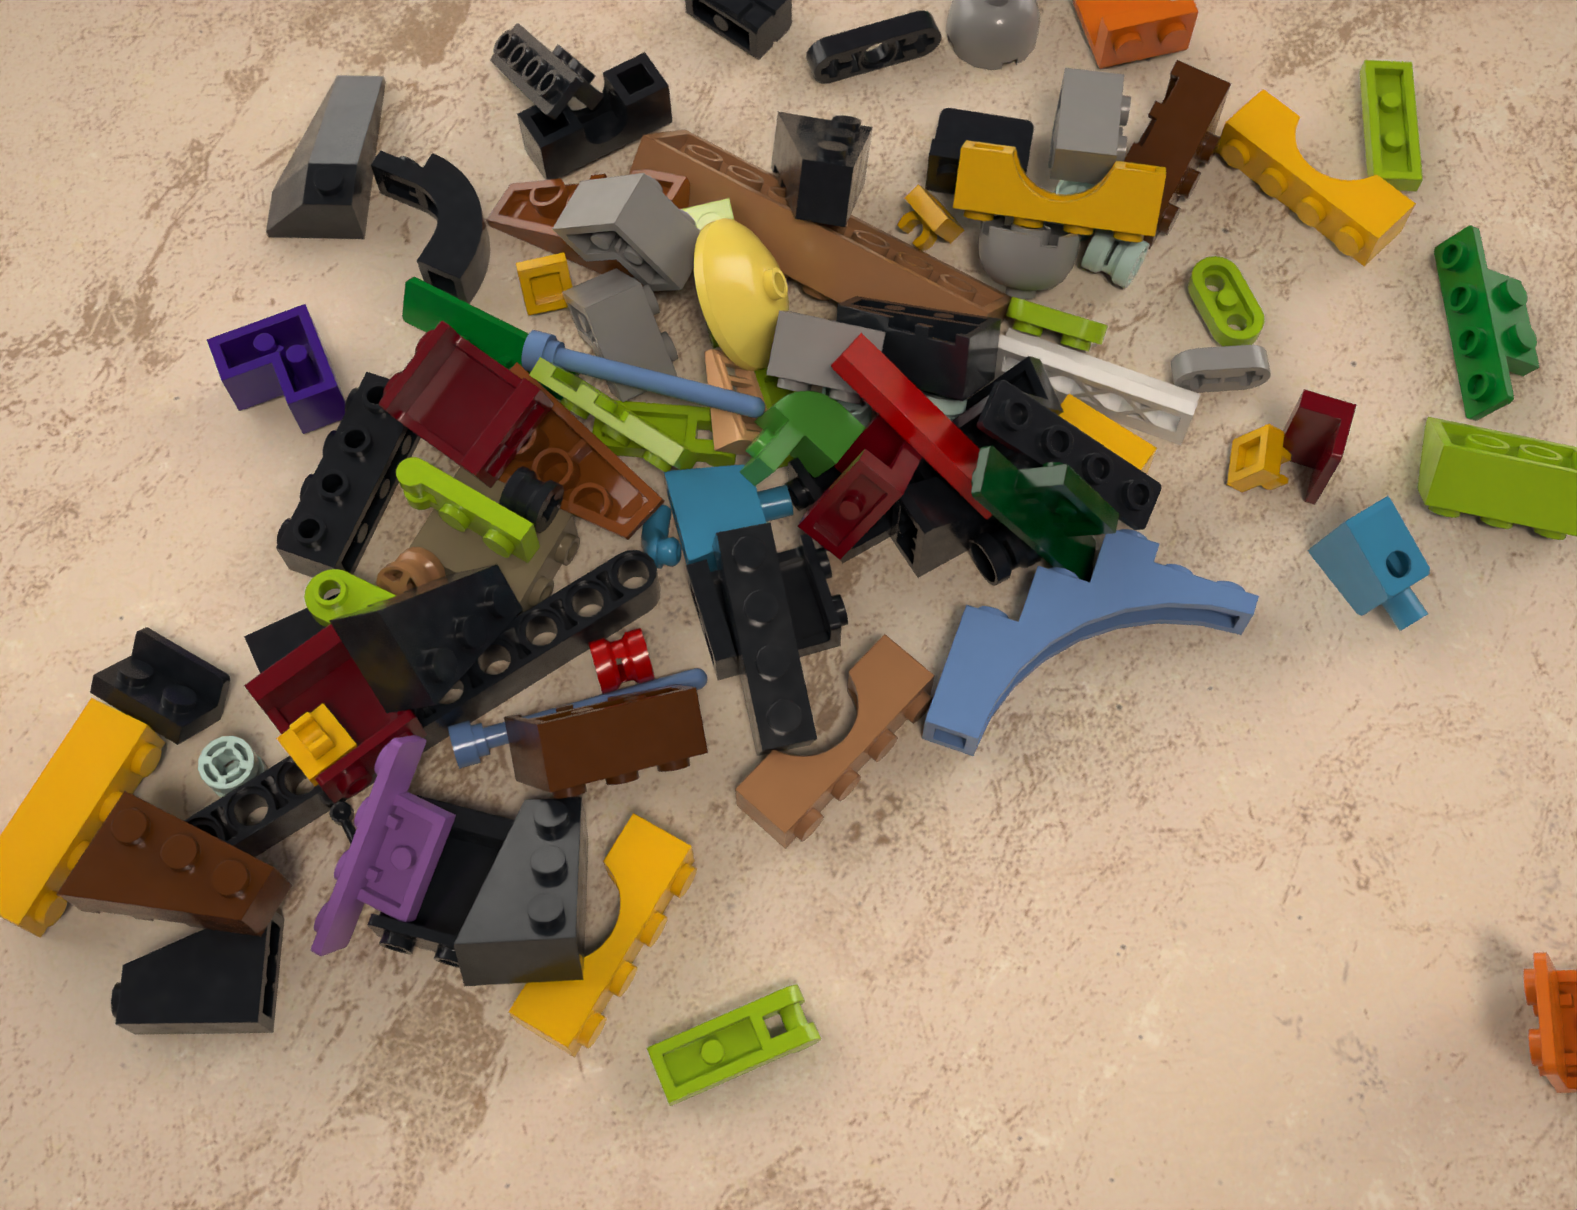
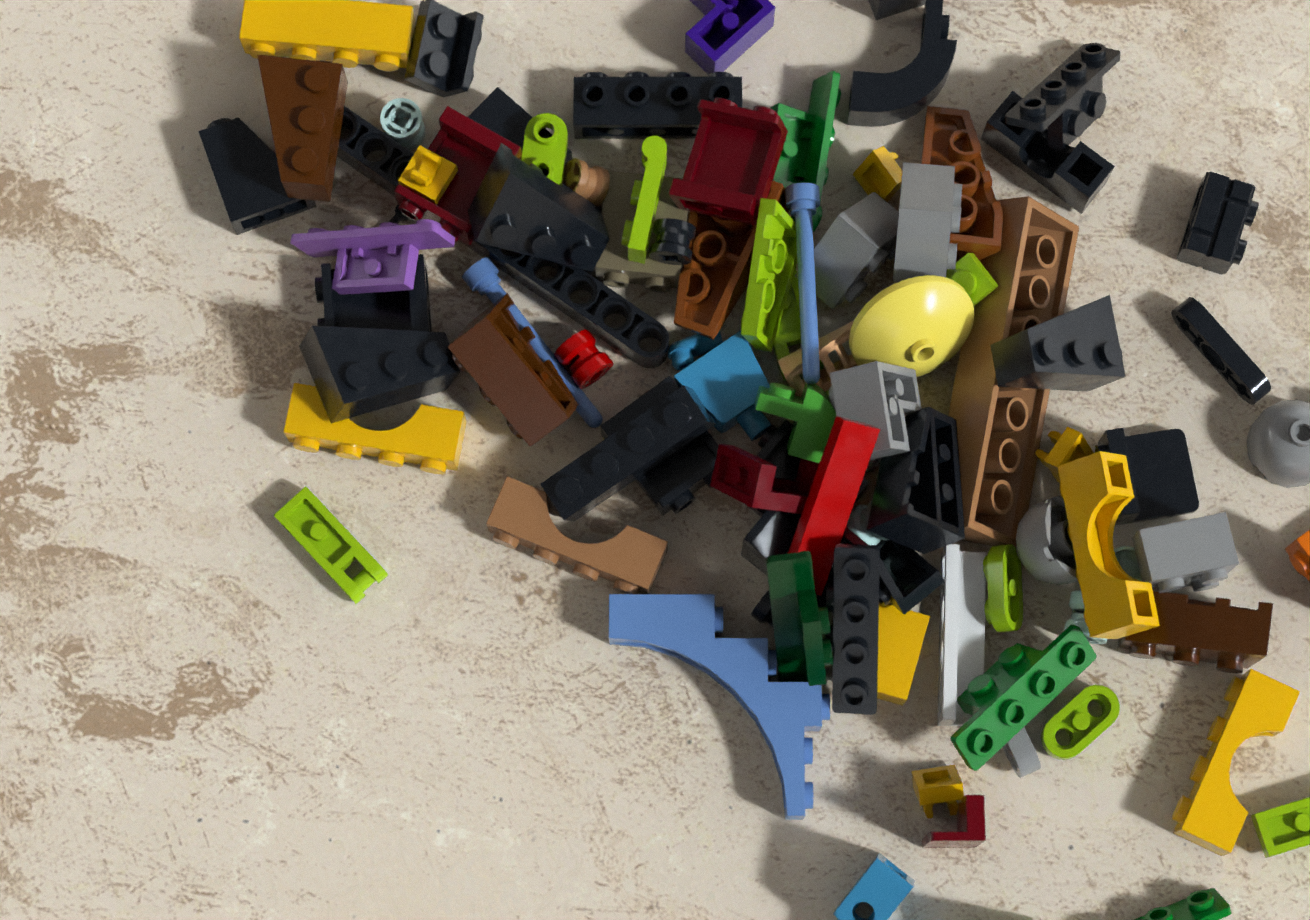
camera: 70 degrees right, 10 degrees up
(1179, 342) = (1016, 691): none -> green bracket

